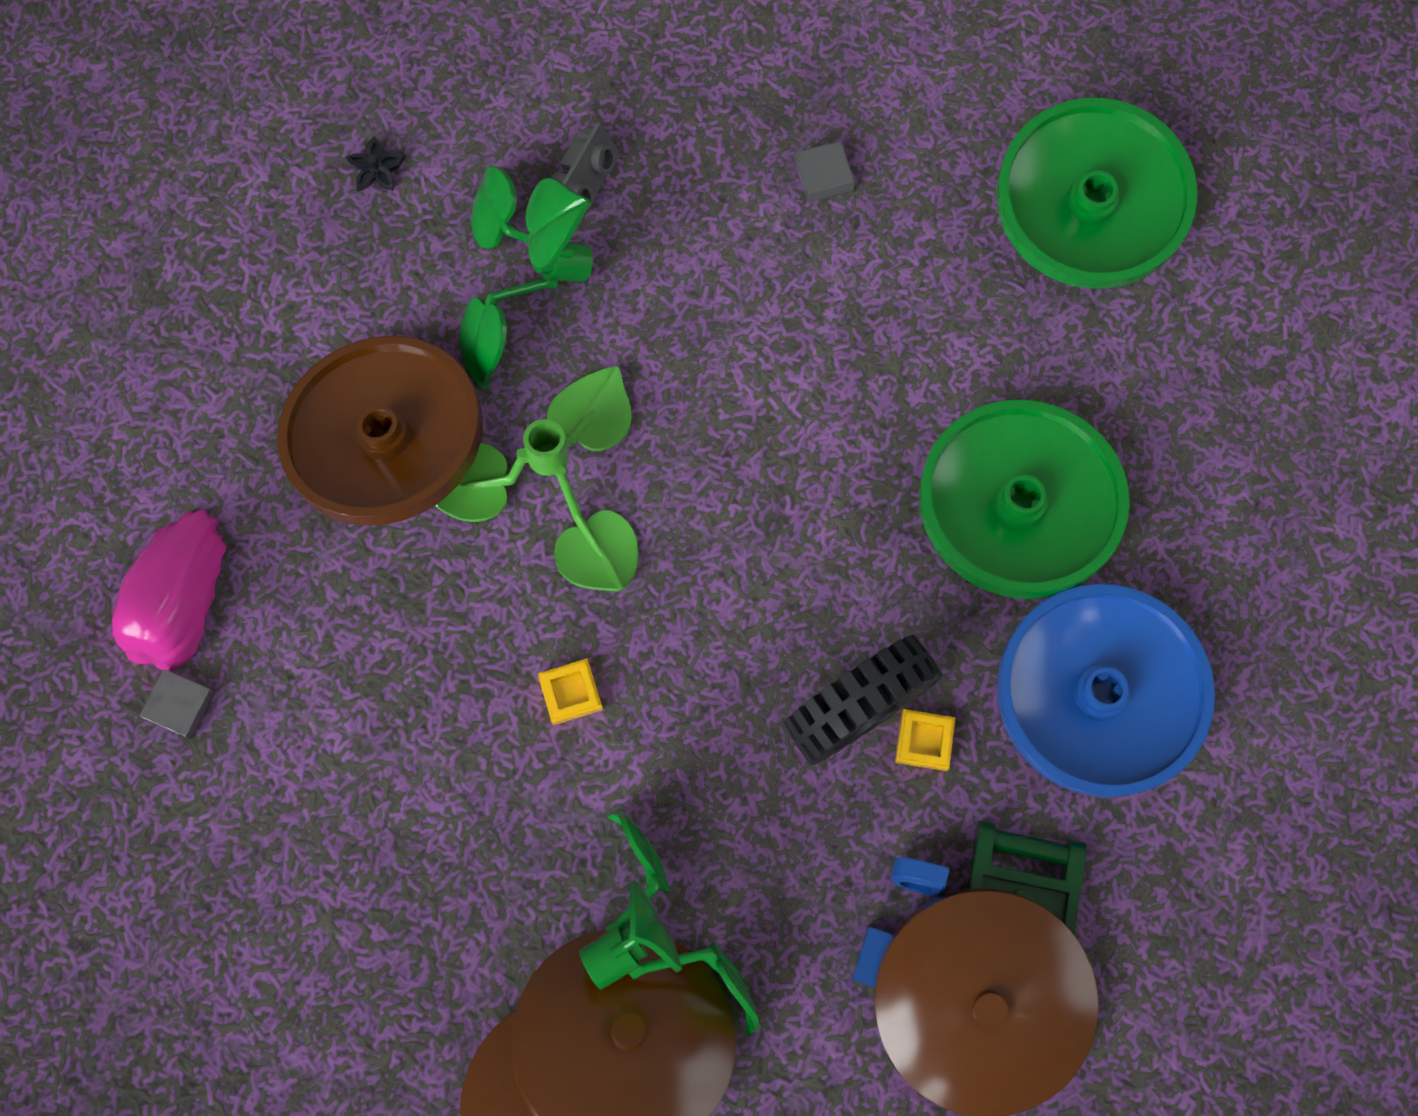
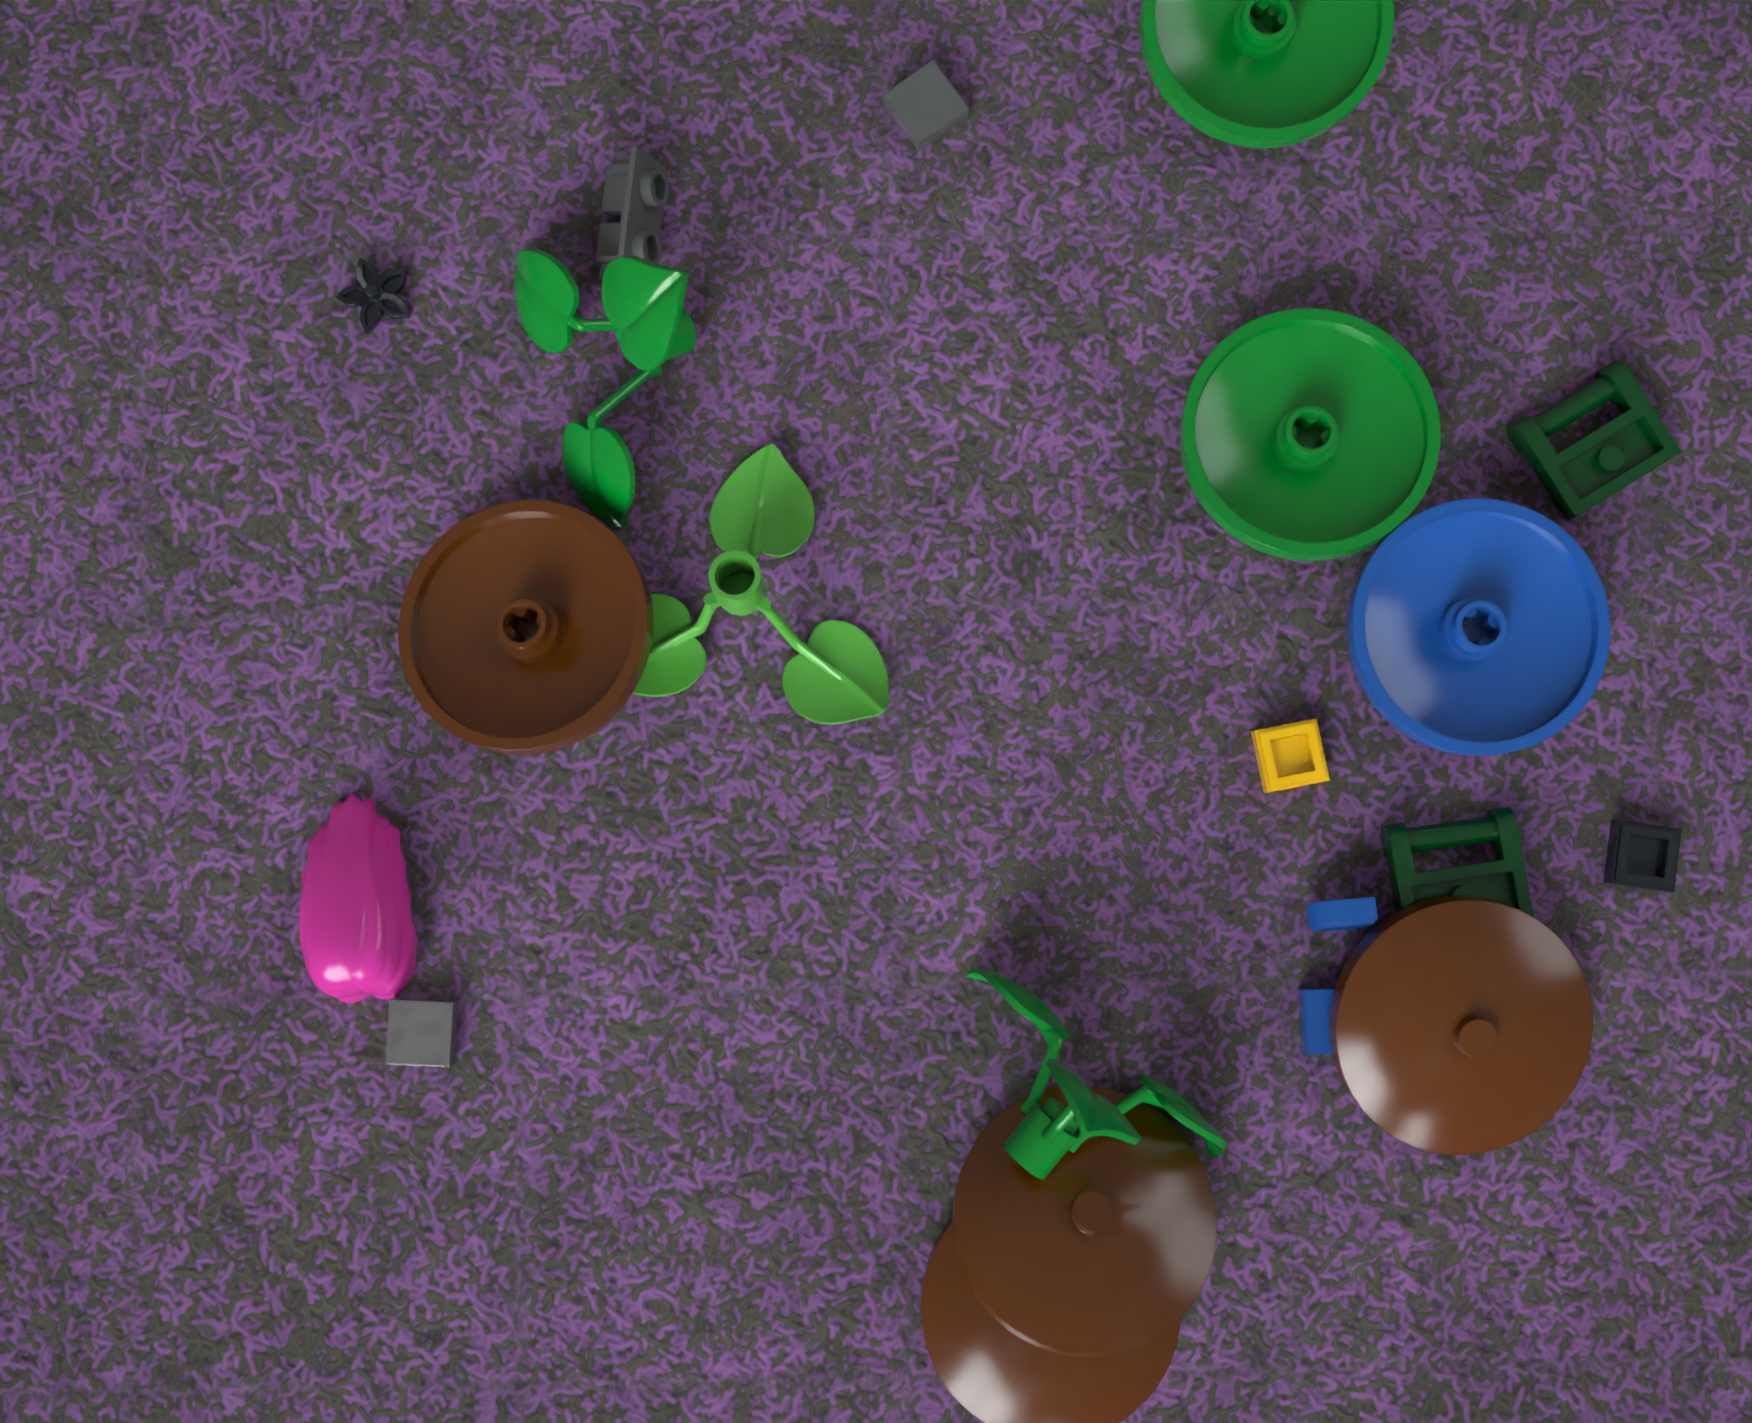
camera: 20 degrees left, 10 degrees up
(570, 691) = (867, 849): yellow tile -> none
(862, 699) = (1217, 746): black wheel -> none
(1181, 923) = (1642, 855): none -> black tile
(1249, 600) = (1603, 459): none -> dark green plate

